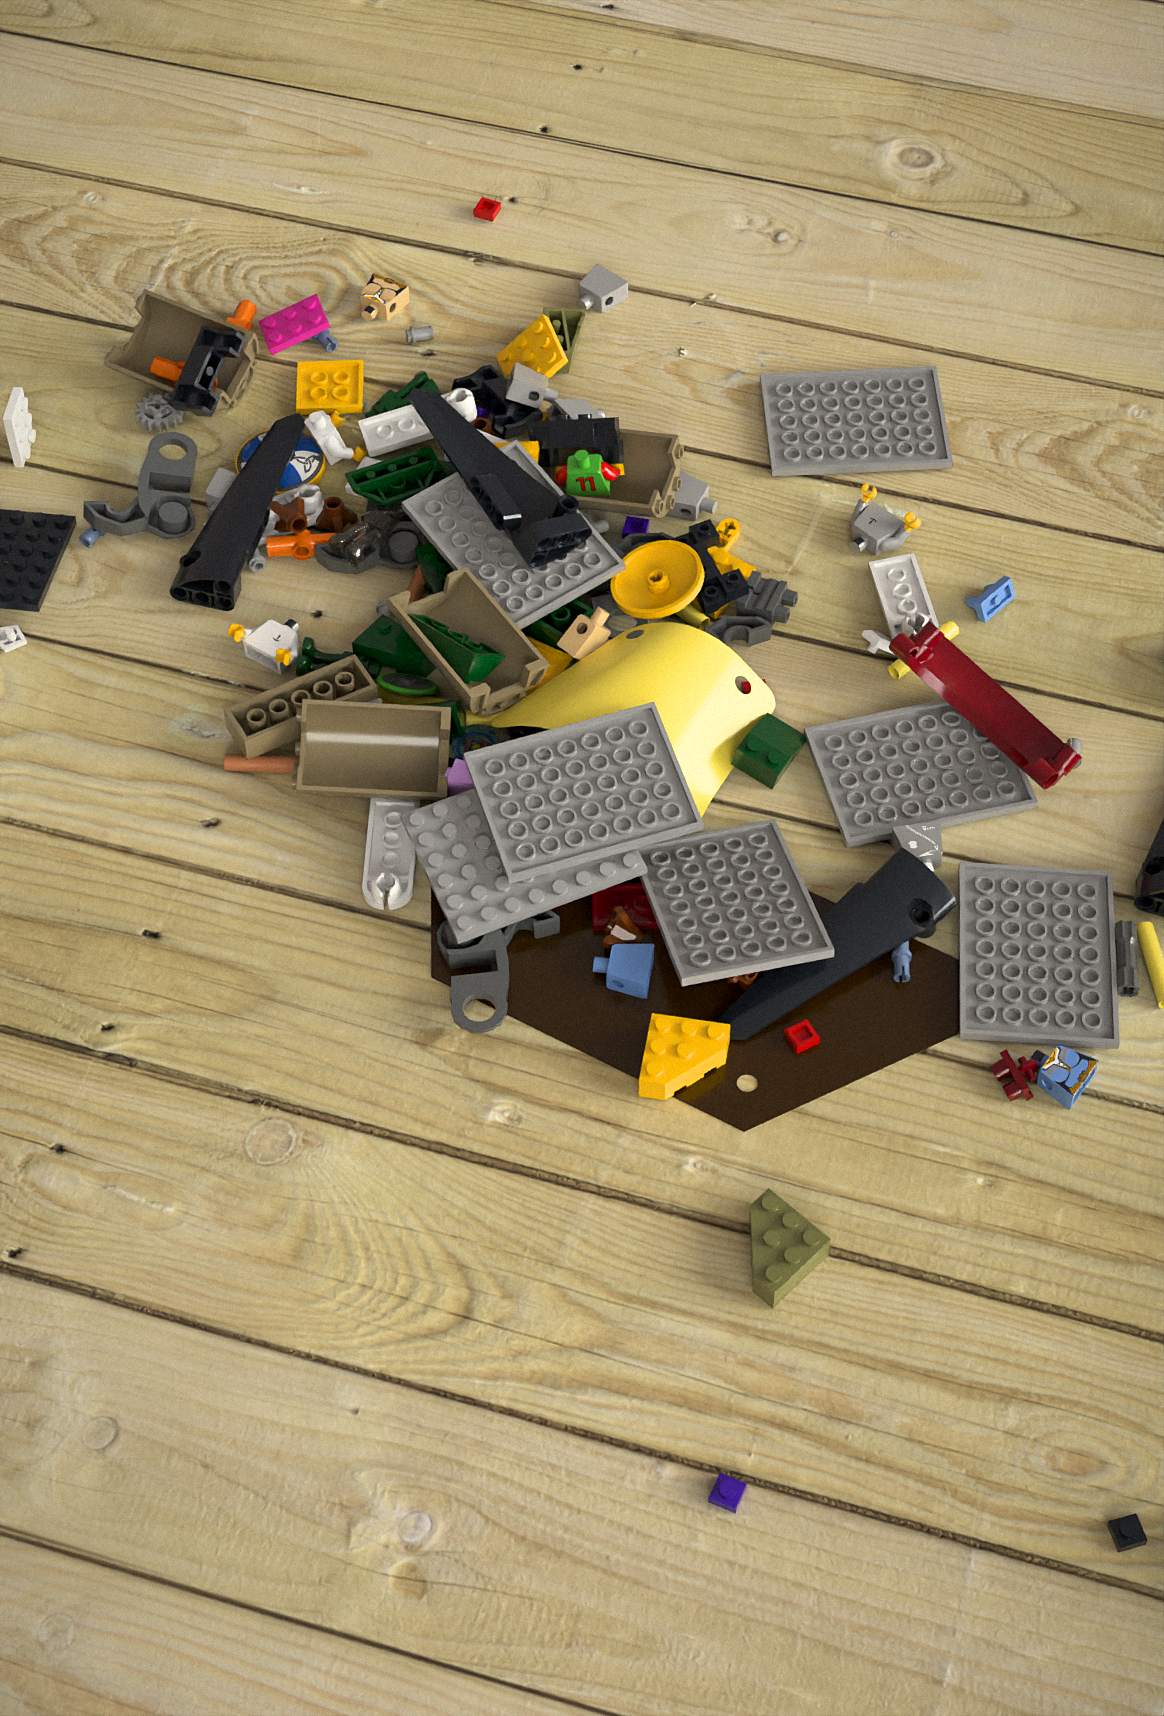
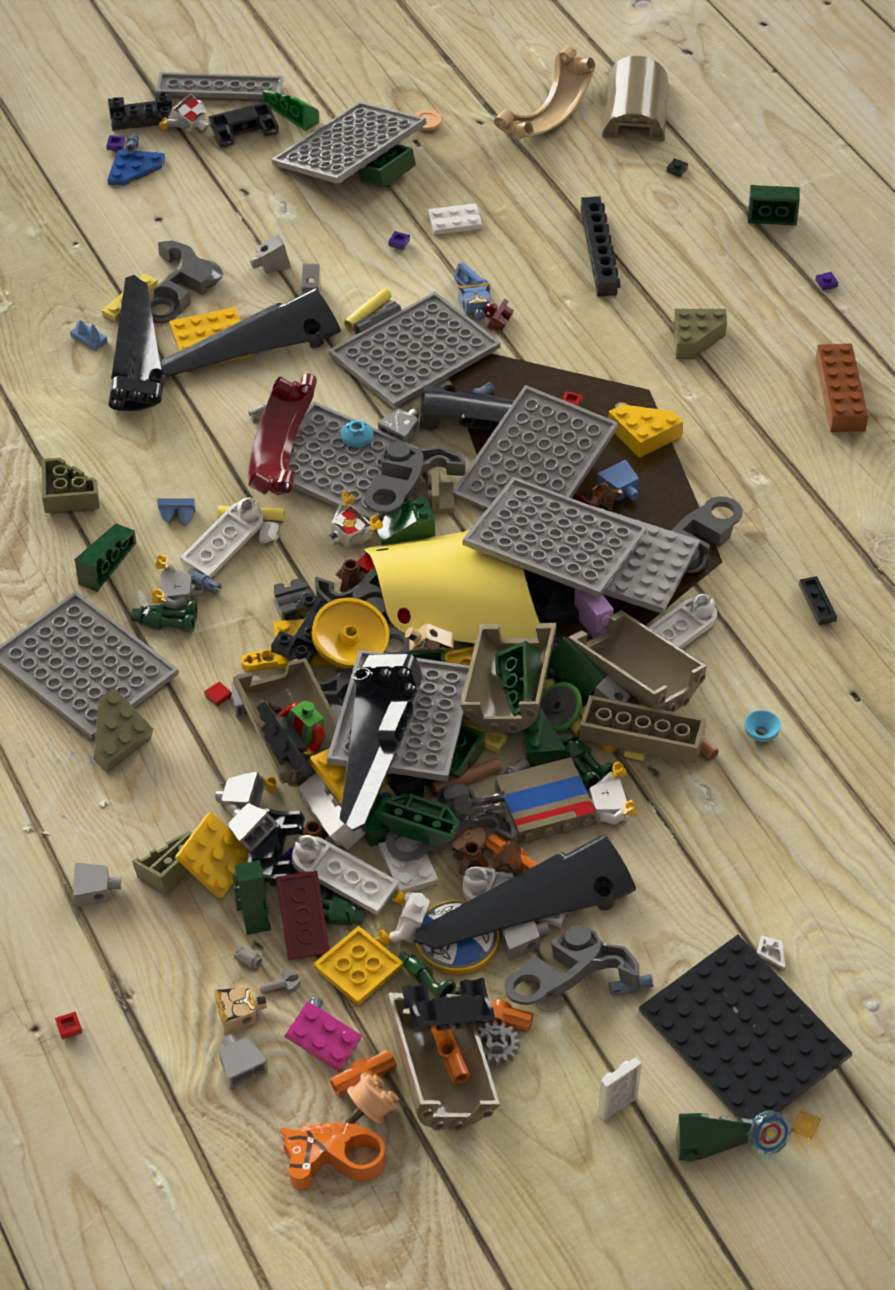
camera: 135 degrees left, 5 degrees down
(192, 428) = (511, 1016): none -> orange piece
(204, 808) = (762, 720): none -> medium azure piece
(205, 277) = (329, 1143): none -> orange animal
(206, 297) = (371, 1099): none -> light nougat wheel
(274, 408) = (424, 974): none -> dark green piece
(284, 1000) = (817, 600): none -> black plate
(331, 602) = (546, 800): none -> dark tan panel
(335, 273) = (241, 1061): none -> light grey torso
(373, 342) = (283, 983): none -> light grey bar
(409, 372) = (302, 915): none -> dark red tile
(461, 348) = (251, 897): none -> dark green wedge
(531, 1309) = (841, 388): none -> dark orange brick
(717, 485) = (218, 693): none -> red tile
(742, 384) = (118, 730): none -> olive brick
(753, 656) = (350, 575): none -> reddish brown rock
(787, 805) = (438, 494): none -> dark tan bracket
(814, 704) = (350, 526): none -> torso
(829, 514) = (157, 616): none -> dark green piece
(846, 798) = (406, 463): none -> dark grey animal
(864, 557) = (205, 580): none -> sand blue pin
(918, 1546) = (773, 205): none -> dark green brick
(941, 803) = (357, 438): none -> medium azure piece
(975, 502) = (104, 556): none -> dark green wedge
(1060, 1286) = (599, 246): none -> black brick
(1099, 1100) = (467, 276): none -> medium blue tile
(1106, 531) = (67, 487): none -> olive brick

